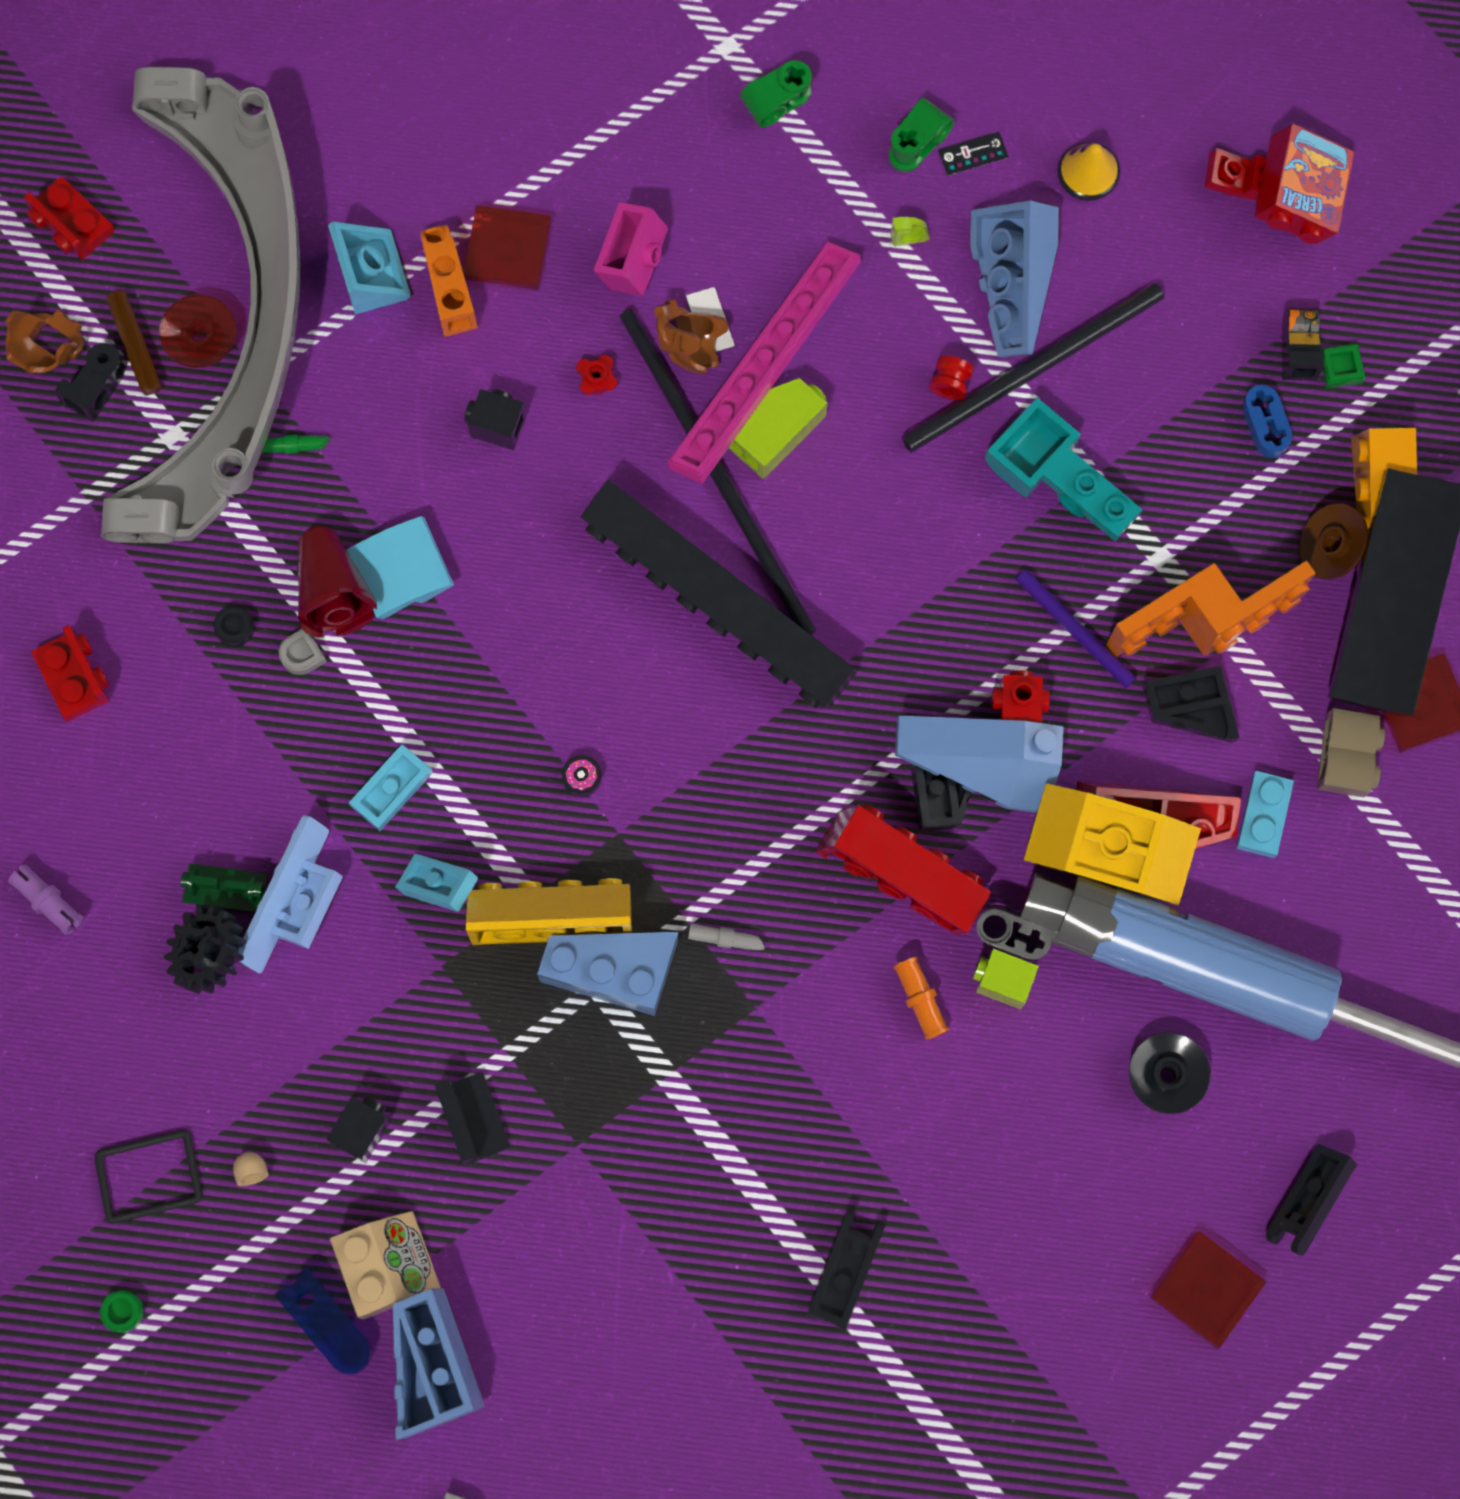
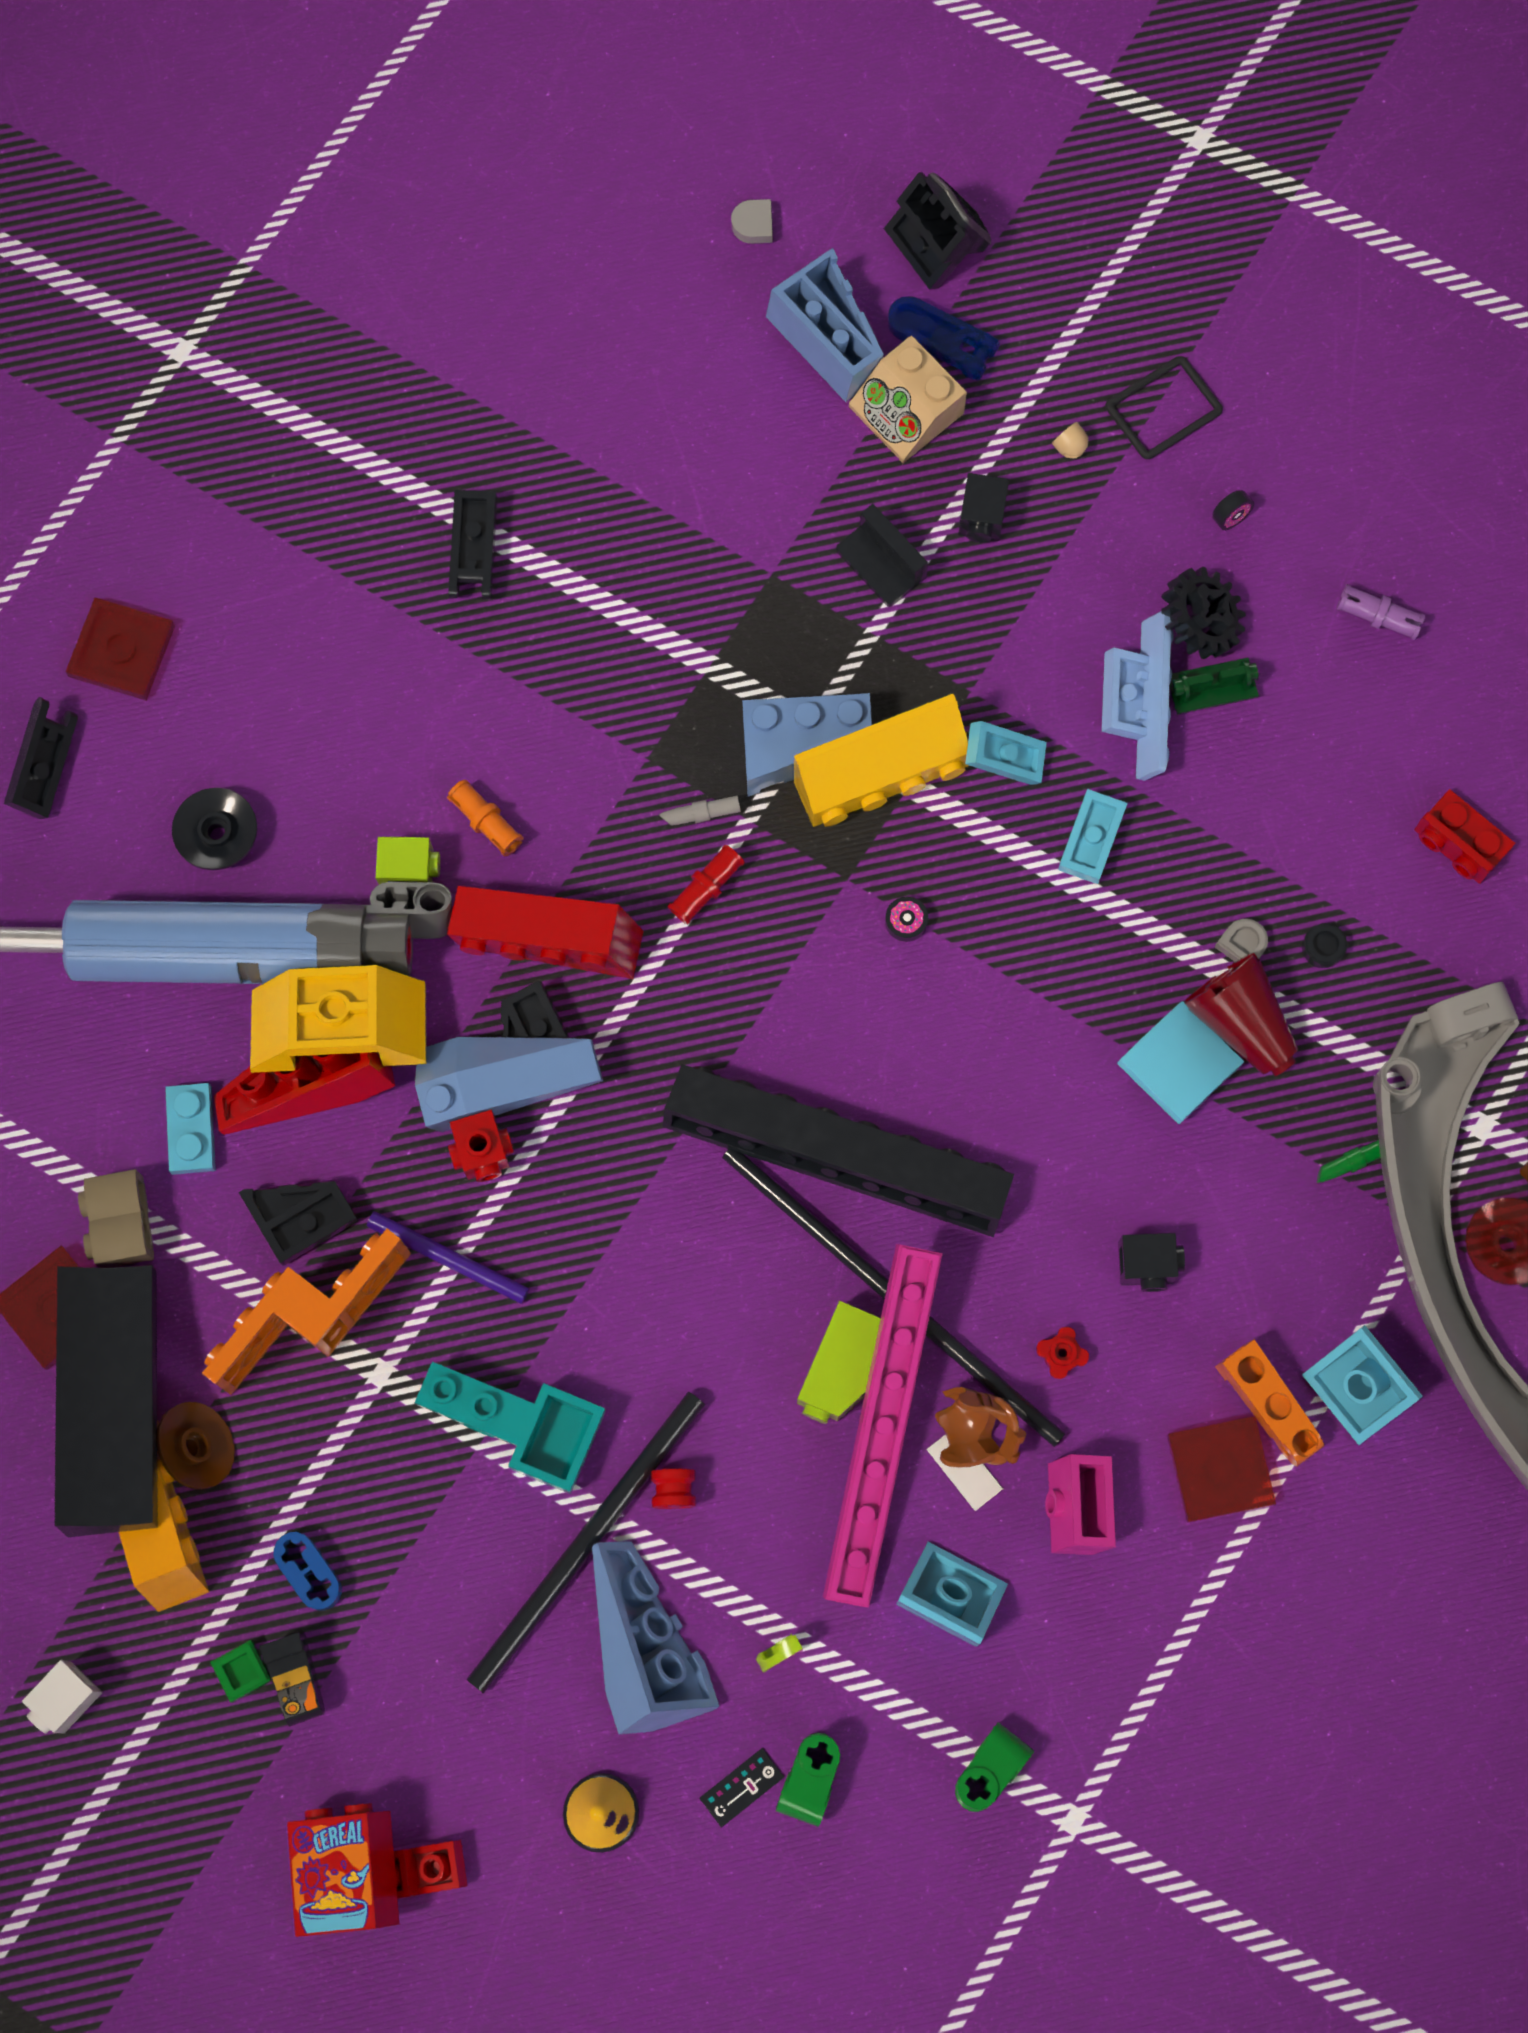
camera: 165 degrees right, 0 degrees up
(121, 1311) = (1133, 285): green tile -> none
(132, 1044) = (1232, 509): none -> black tile
(284, 1430) = (935, 228): none -> black piece
(745, 866) = (706, 884): none -> red pin
(760, 223) = (952, 1594): none -> medium azure slope

